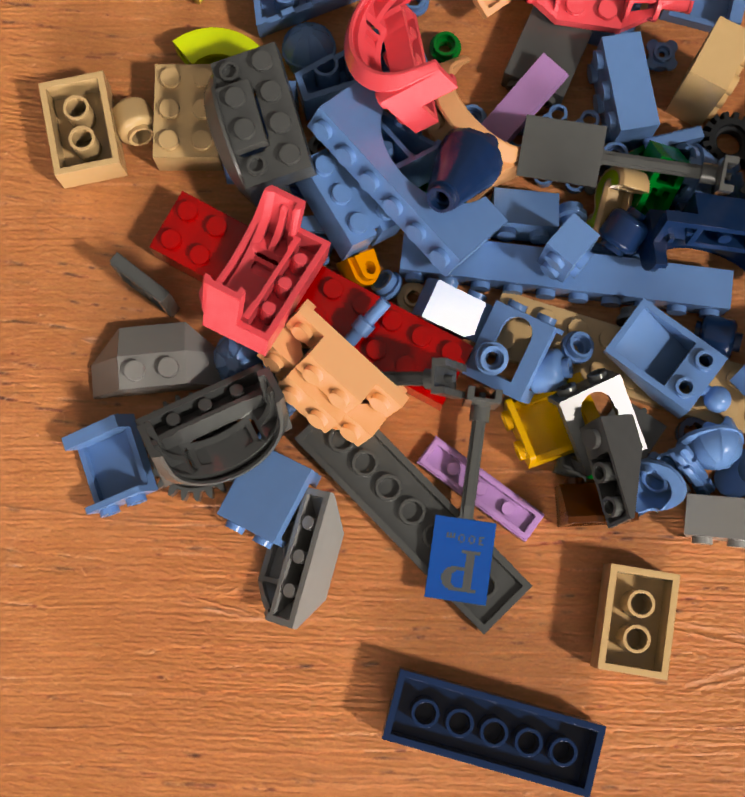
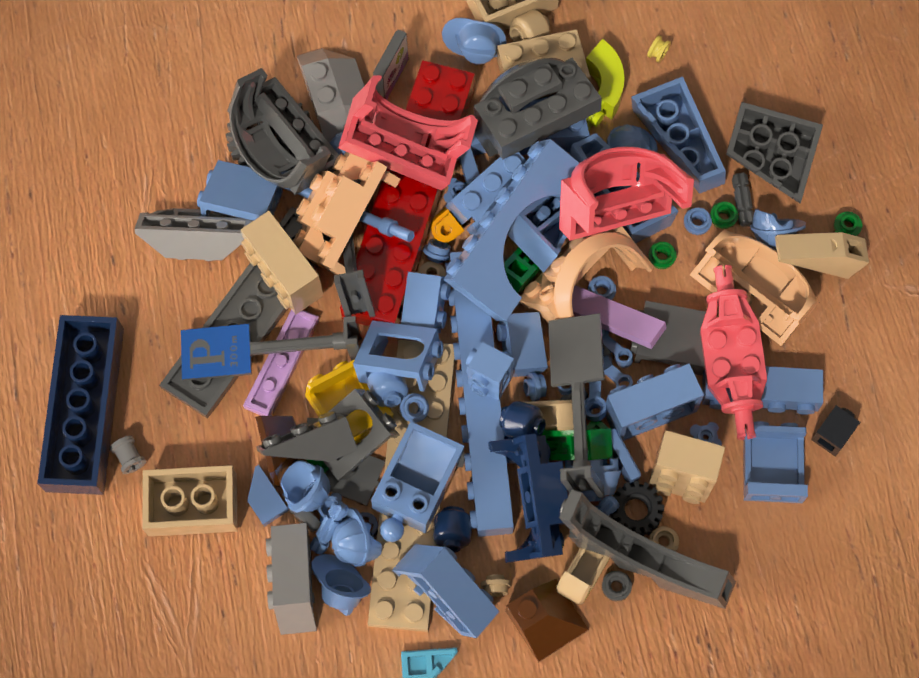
camera: 80 degrees right, 10 degrees down
(113, 463) = (223, 82): medium blue panel -> none
(133, 184) = (473, 39): none -> medium blue piece
(379, 459) = (281, 263): none -> tan brick
(463, 168) = (530, 265): dark blue cone -> none
(501, 358) = (379, 328): medium blue plate -> none
(559, 685) = (127, 454): none -> light grey bush
(638, 537) = (264, 498): none -> medium blue tile

